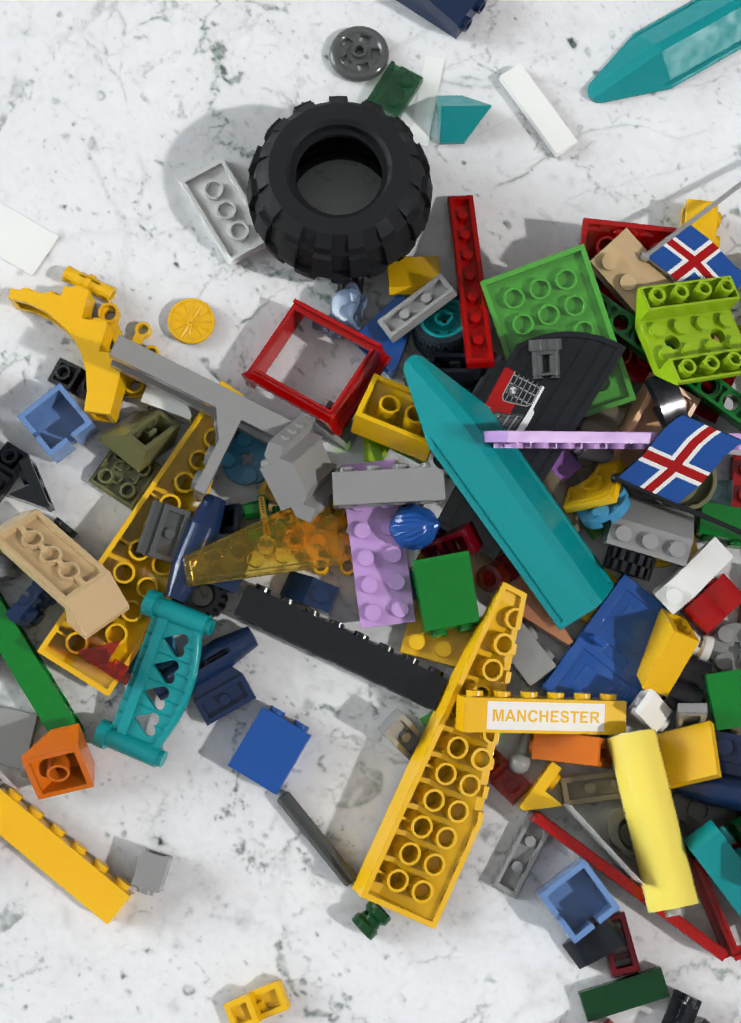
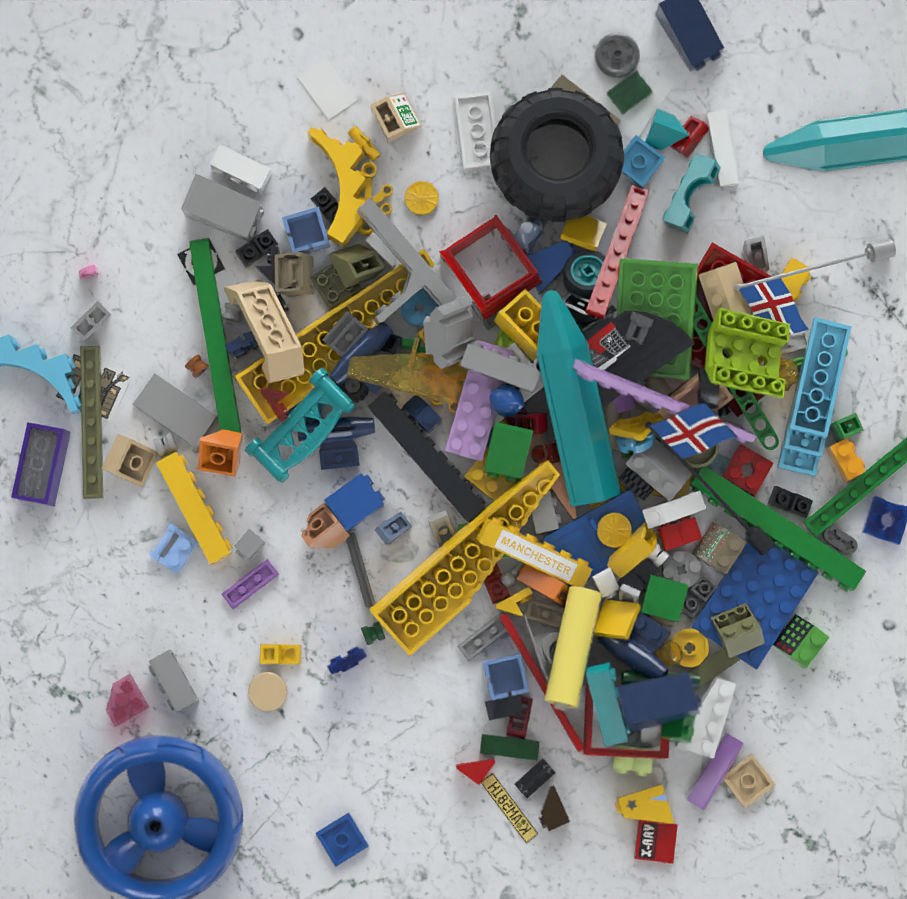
camera: 25 degrees right, 5 degrees up
(59, 926) = (178, 553): none -> light blue plate
(62, 478) = (293, 271): none -> dark tan piece
(113, 235) = (395, 117): none -> tan slope
(175, 925) = (250, 584): none -> medium lavender tile
(244, 806) = (323, 529): none -> nougat slope
(336, 762) = (393, 528): none -> sand blue slope
(351, 982) = (351, 660): none -> clear blue brick
(417, 307) = (573, 256): light grey tile -> none
(448, 164) = (640, 161): none -> dark azure plate
(493, 122) = (697, 130): none -> red slope
(526, 146) = (701, 172): none -> teal arch
(628, 636) = (614, 530): none -> yellow wheel
(639, 208) = (756, 252): none -> light grey slope

